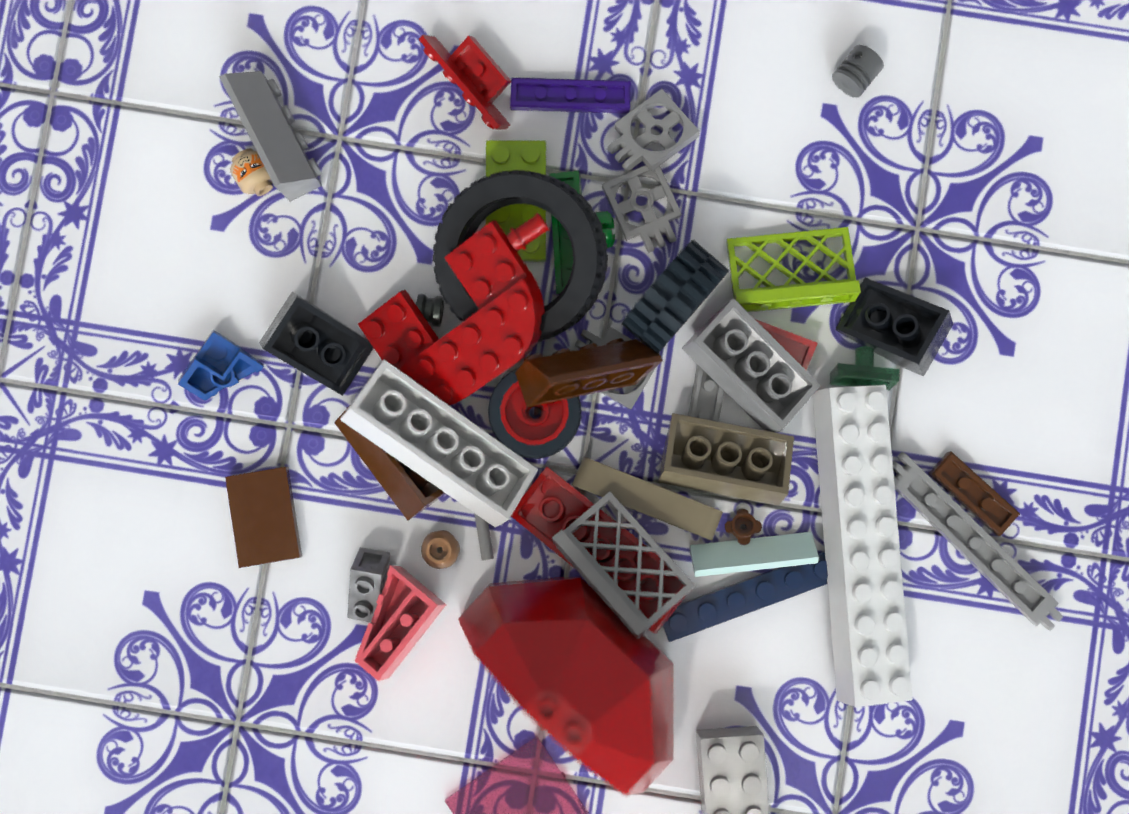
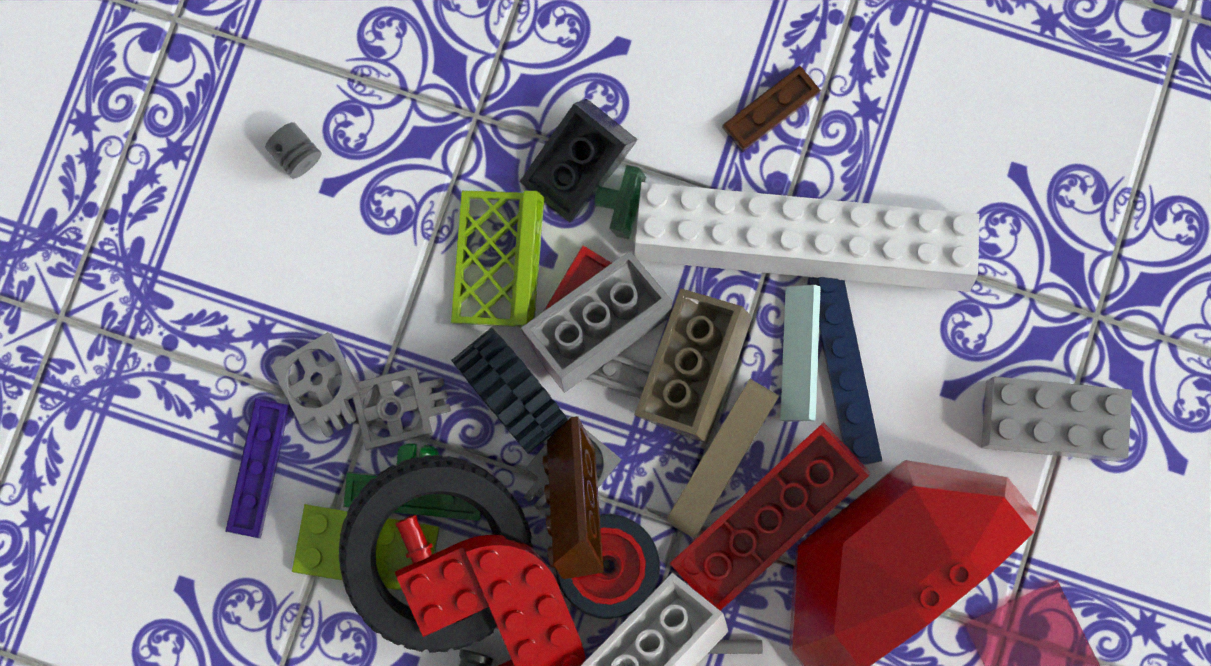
camera: 75 degrees left, 5 degrees down
(474, 74) = (213, 573): red bracket -> none
(603, 584) = (799, 525): light grey fence -> none
(752, 526) = (778, 361): reddish brown plate -> none
(974, 543) = (823, 119): light grey hinge -> none

